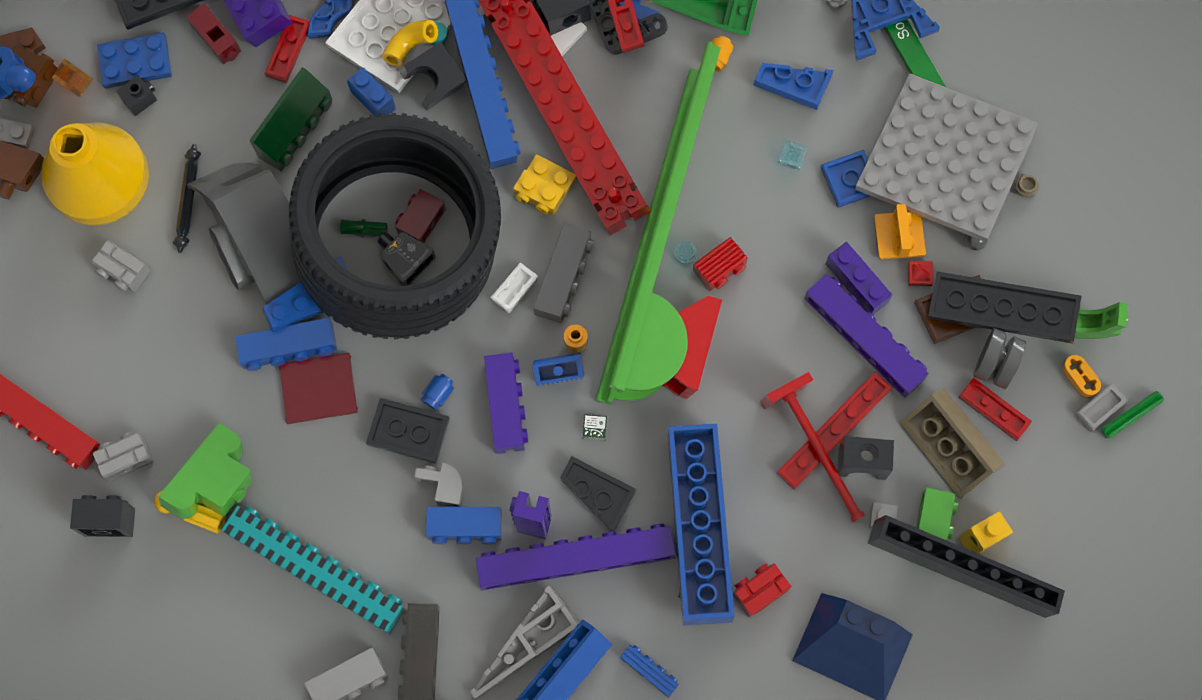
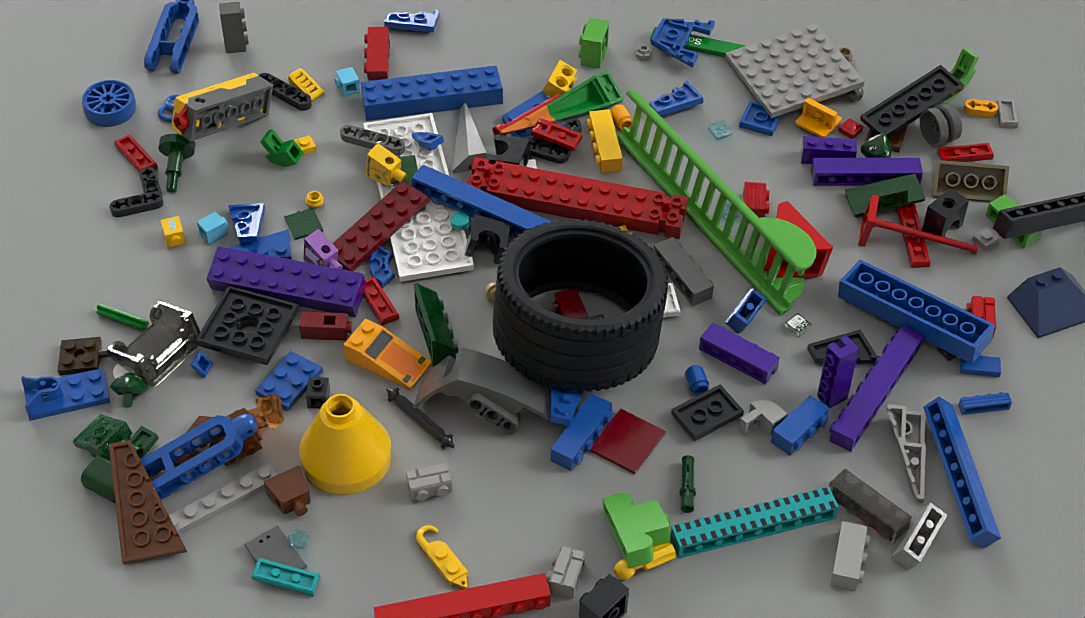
camera: 50 degrees left, 25 degrees down
(57, 346) = (443, 559): none -> yellow plate
(227, 111) = (385, 355): none -> slope
(308, 479) = (687, 502): none -> dark green pin
(371, 93) = (461, 278): blue brick -> none
(407, 38) = (449, 232): yellow cylinder -> none
(575, 345) = (733, 291): light orange brick -> none
(669, 67) = (605, 141): none -> yellow brick
(701, 637) = (982, 366): none -> blue tile
(847, 378) = (891, 193): none -> dark green bracket
(906, 322) = (877, 147): none -> dark green piece
(986, 533) = (1042, 190): yellow torso -> none
(1132, 415) = (1024, 109): green axle -> none

